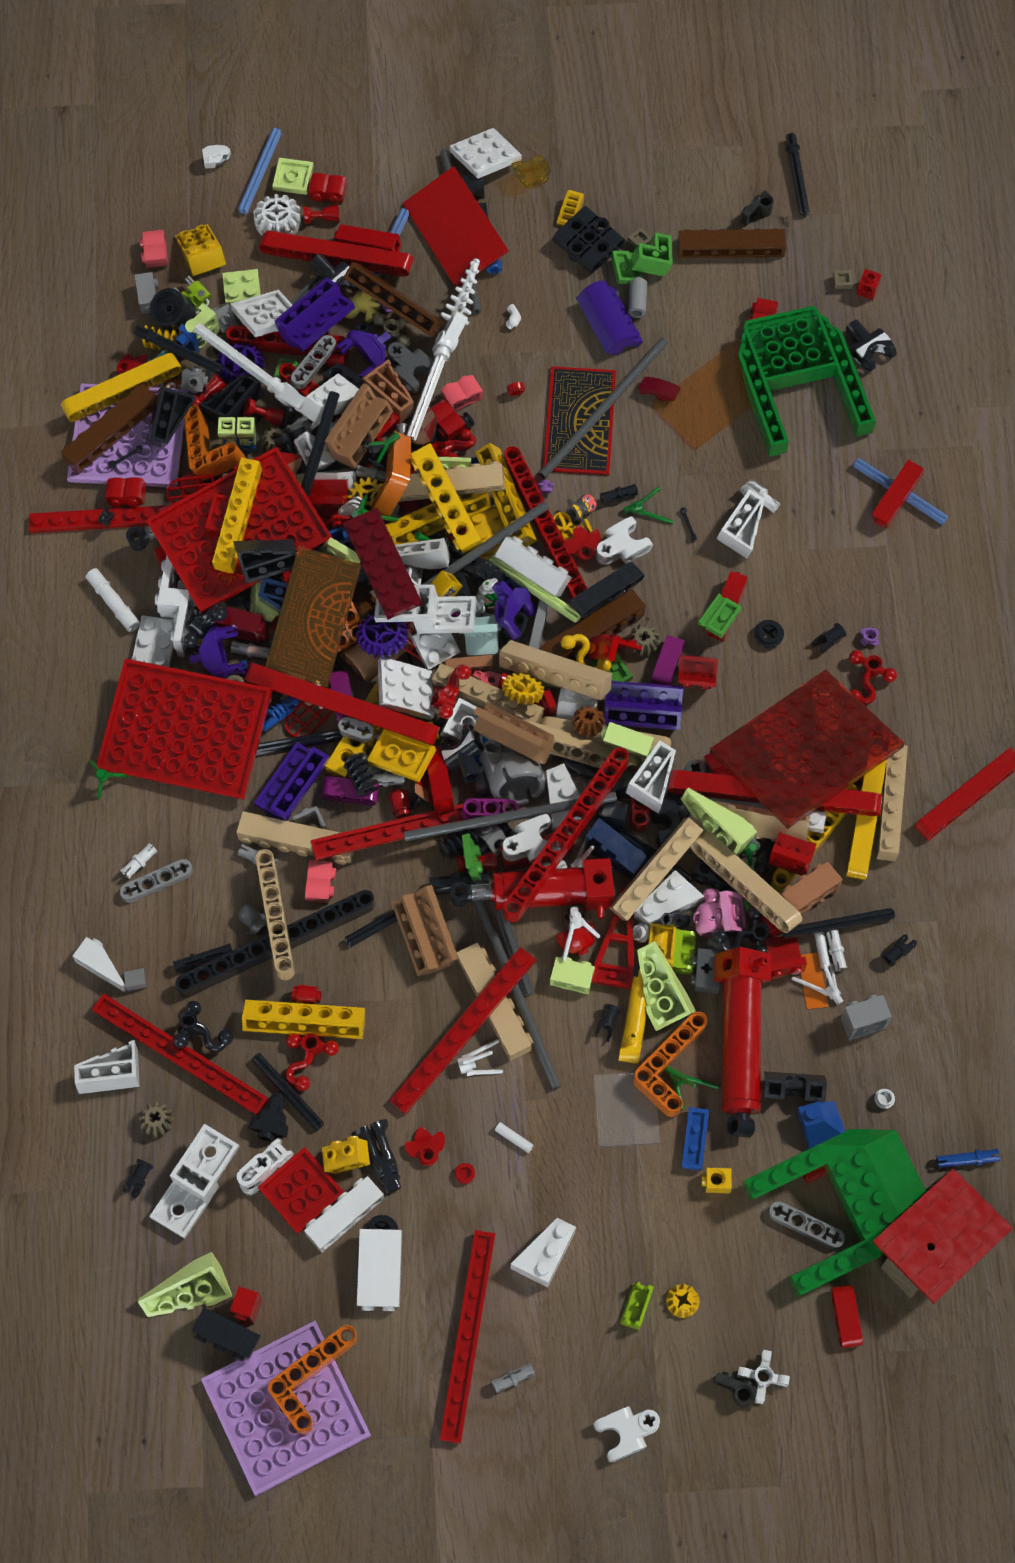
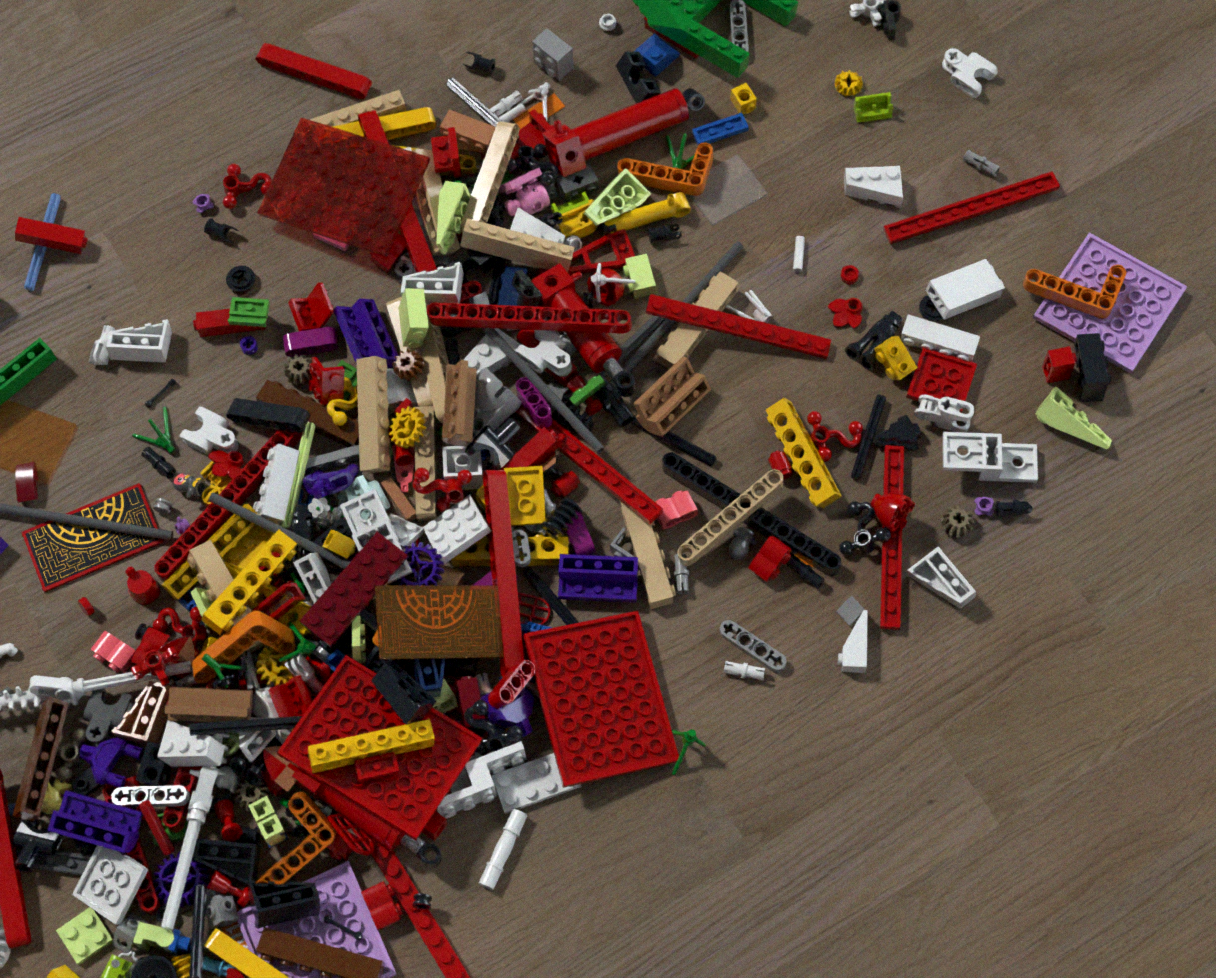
camera: 115 degrees left, 0 degrees up
(151, 1155) = (988, 502): none -> medium lavender plate
(196, 1057) = (892, 509): none -> red piece
(220, 933) = (770, 558): none -> red brick
(239, 659) = (511, 684): none -> red beam
(286, 357) = (156, 827): none -> red axle
(414, 513) = (281, 601): none -> red window
(423, 414) = (158, 669): none -> red pin
(508, 434) = (142, 586): none -> red hat
(574, 480) = (162, 506): none -> light grey bush
(609, 851) = (528, 293): none -> pearl dark grey plate
(697, 606) = (253, 348): none -> dark purple bush

